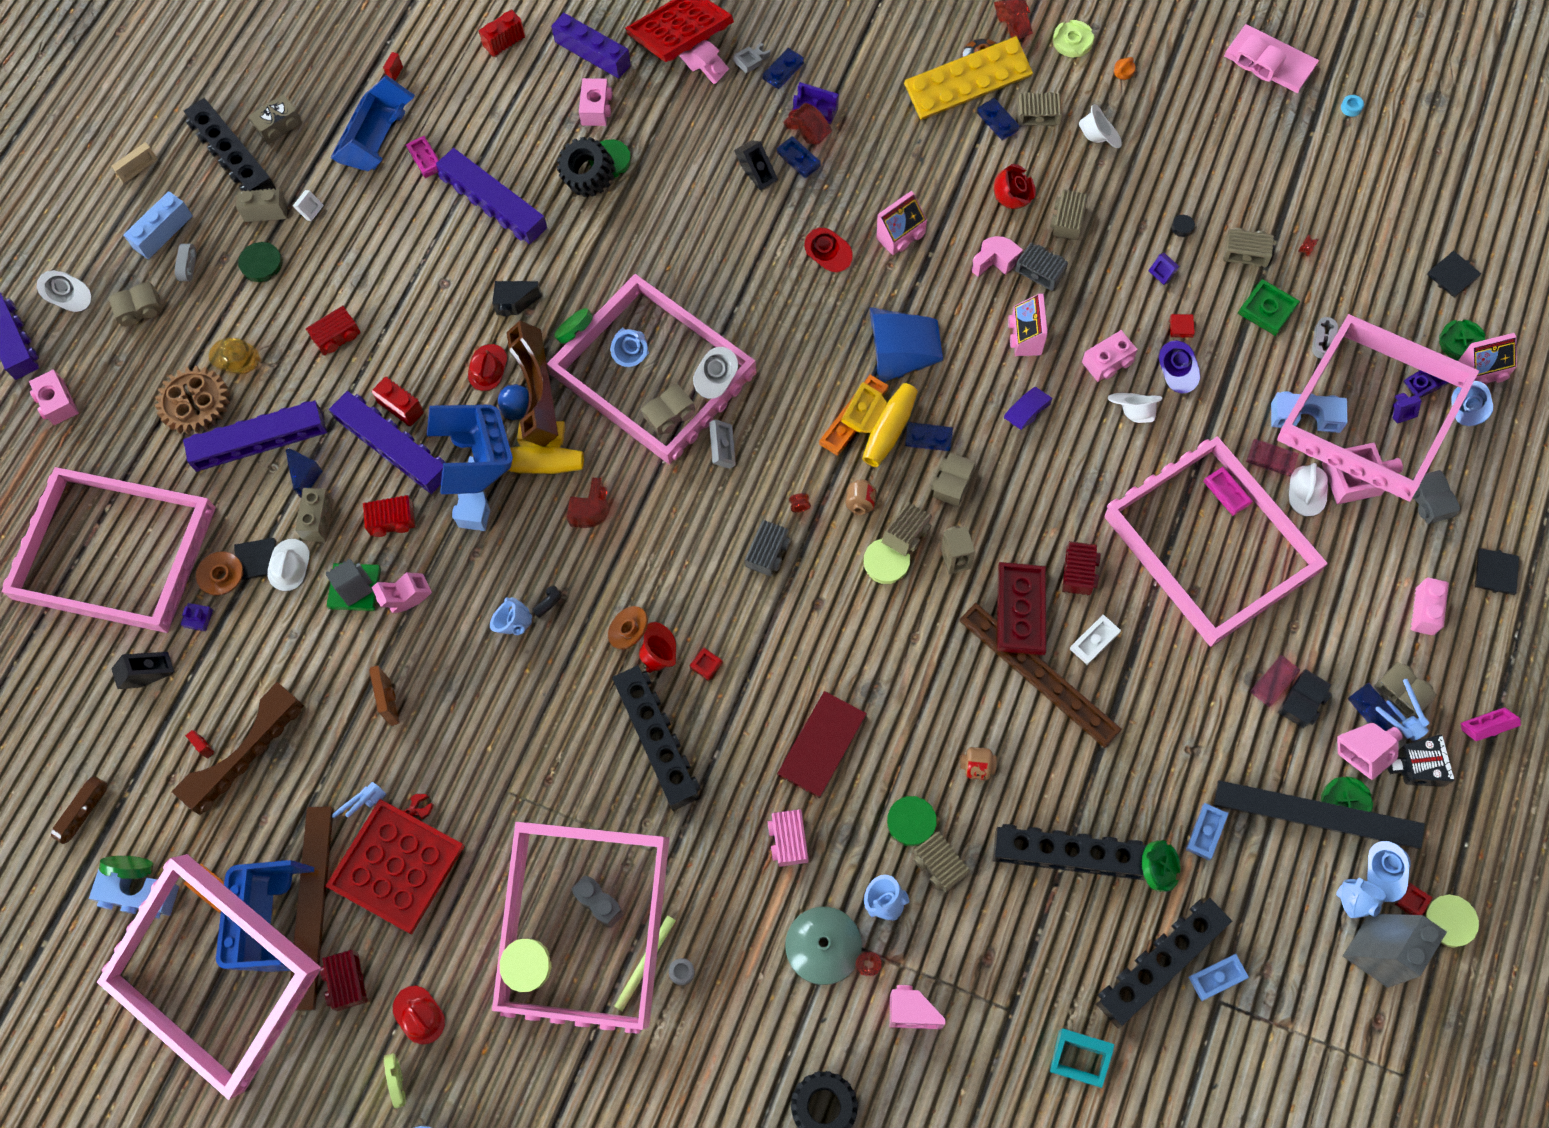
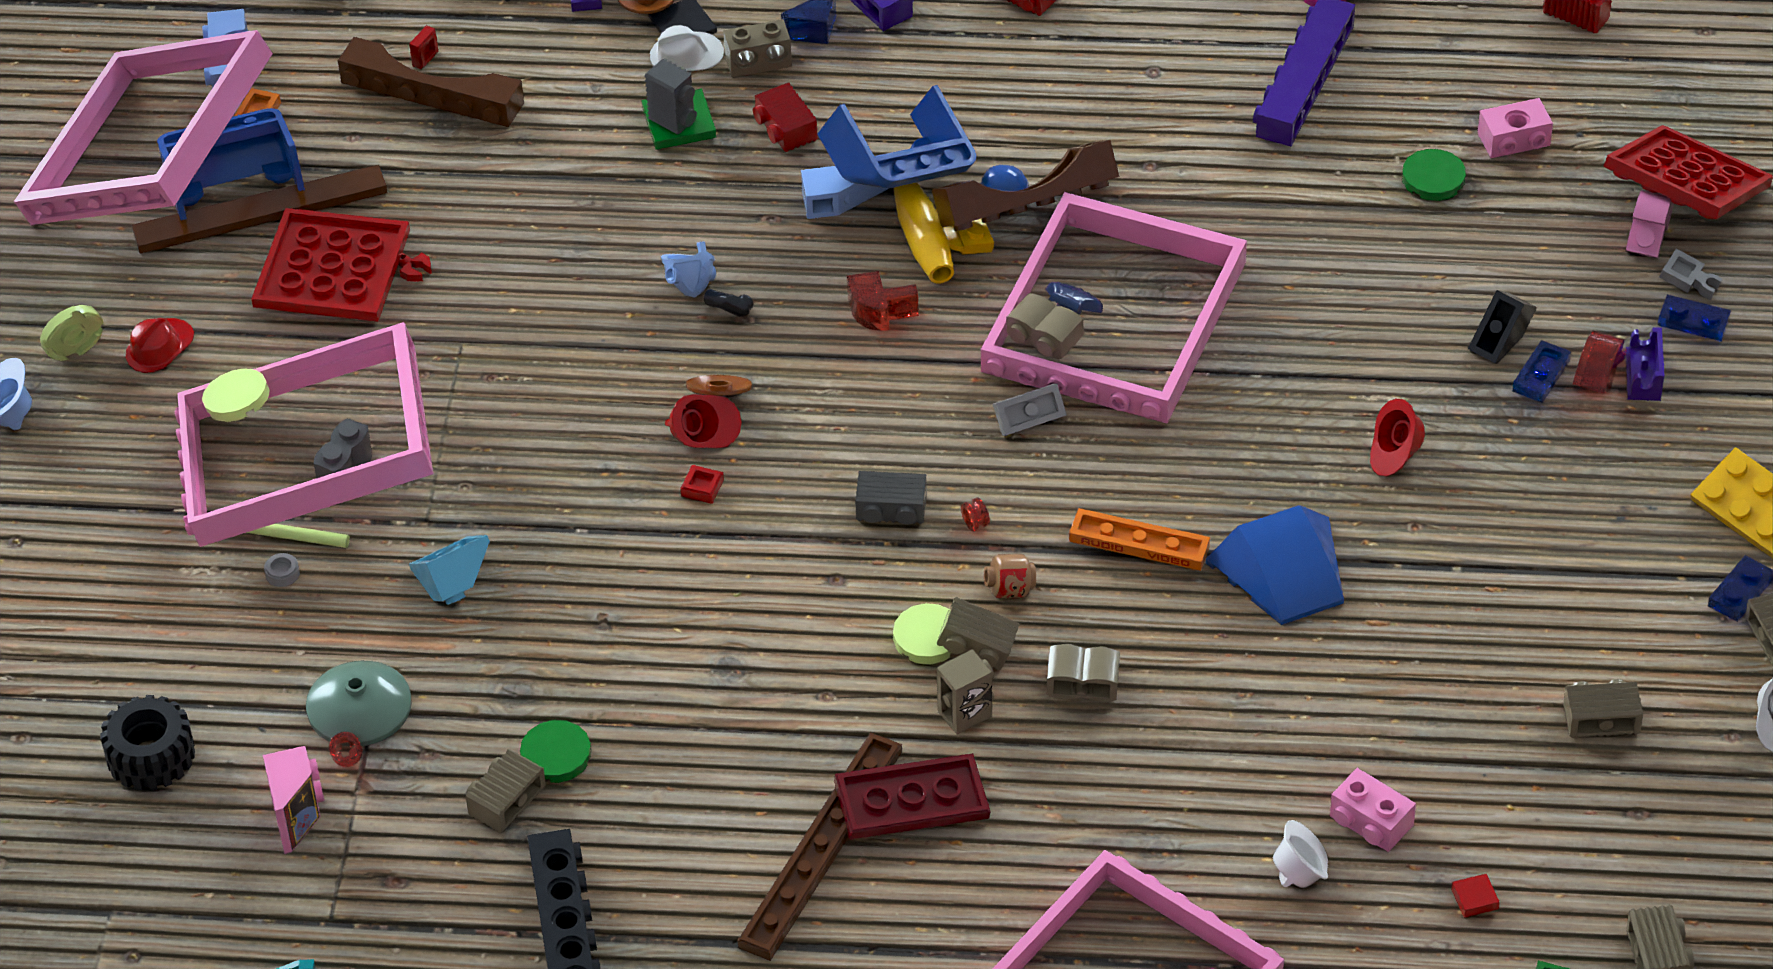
camera: 70 degrees right, 20 degrees down
(126, 866) = (251, 19): green tile -> none
(343, 980) = (179, 261): dark red brick -> none
(369, 796) = (407, 211): light blue plant -> none
(384, 695) = (537, 179): dark orange plate -> none
(388, 441) = (895, 76): dark purple brick -> none
(398, 401) = (952, 70): red brick -> none
(404, 593) = (679, 159): bright pink brick -> none
(487, 367) = (1041, 145): red piece -> none
(514, 296) = (1157, 138): black slope -> none
(576, 322) = (1136, 204): green tile -> none
(578, 154) = (1394, 144): black tyre -> none
(591, 45) = (1608, 96): dark purple brick -> none
(629, 347) = (1119, 257): light blue helmet -> none
(650, 386) = (1073, 298): none -> dark blue animal
(676, 794) = (577, 456): black brick -> none
(715, 372) = (1117, 351): white piece -> none
(727, 848) = (451, 569): none -> medium azure slope
(789, 838) = (487, 625): bright pink brick -> none
(821, 744) = (632, 631): dark red tile -> none
(881, 419) = (1140, 562): yellow plate -> none
(885, 898) = (431, 741): light blue helmet -> none
(901, 224) = (1476, 504): slope -> none
(929, 436) = (1144, 634): clear blue plate -> none
(978, 763) = (659, 798): medium nougat head -> none
(998, 252) = (1486, 636): bright pink brick -> none
(1013, 187) = (1610, 621): red cylinder -> none
(1027, 408) = (1230, 726): dark purple slope -> none
(1028, 326) = (1372, 700): slope -> none
(1041, 266) = (1491, 695): dark grey brick -> none
(1080, 568) = (1001, 848): dark red brick -> none
(1095, 639) = (896, 892): white plate -> none
(1163, 268) = (1564, 846): dark purple tile -> none
(1179, 366) = (1398, 898): dark purple piece -> none
(1182, 225) = (1662, 860): black tile -> none

